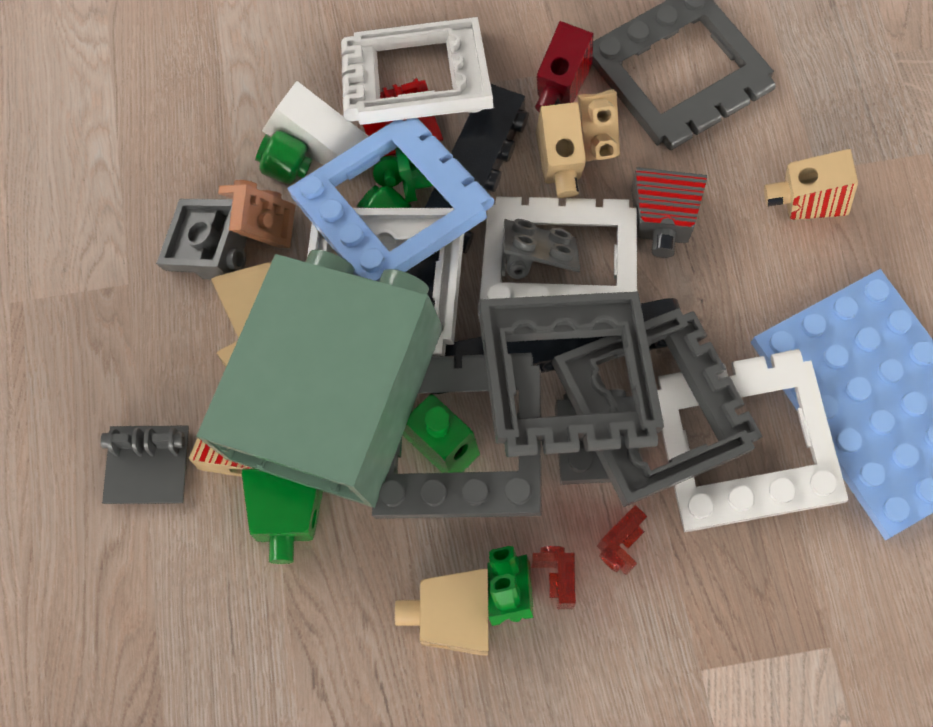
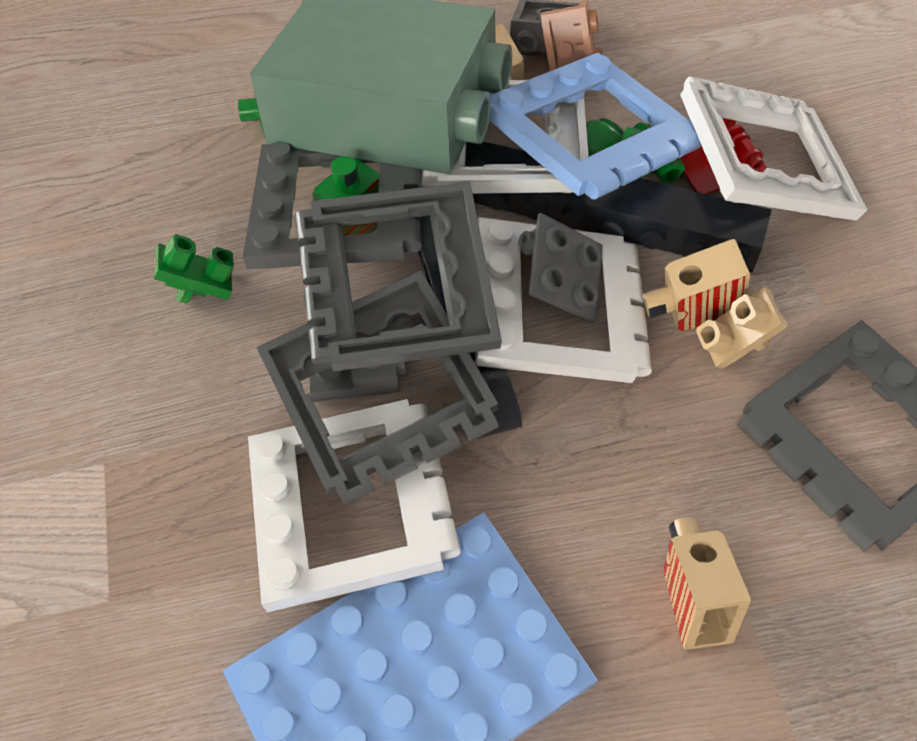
camera: 90 degrees right, 10 degrees down
(283, 157) = (648, 63): green head -> none
(314, 123) = (688, 55): white slope -> none
(450, 612) = (183, 216): tan torso -> none
(563, 581) = (206, 323): clear red bracket -> none
(564, 65) = (813, 287): dark red torso -> none
(625, 532) = (237, 367): clear red bracket -> none
(666, 207) = (647, 410): dark grey torso -> none

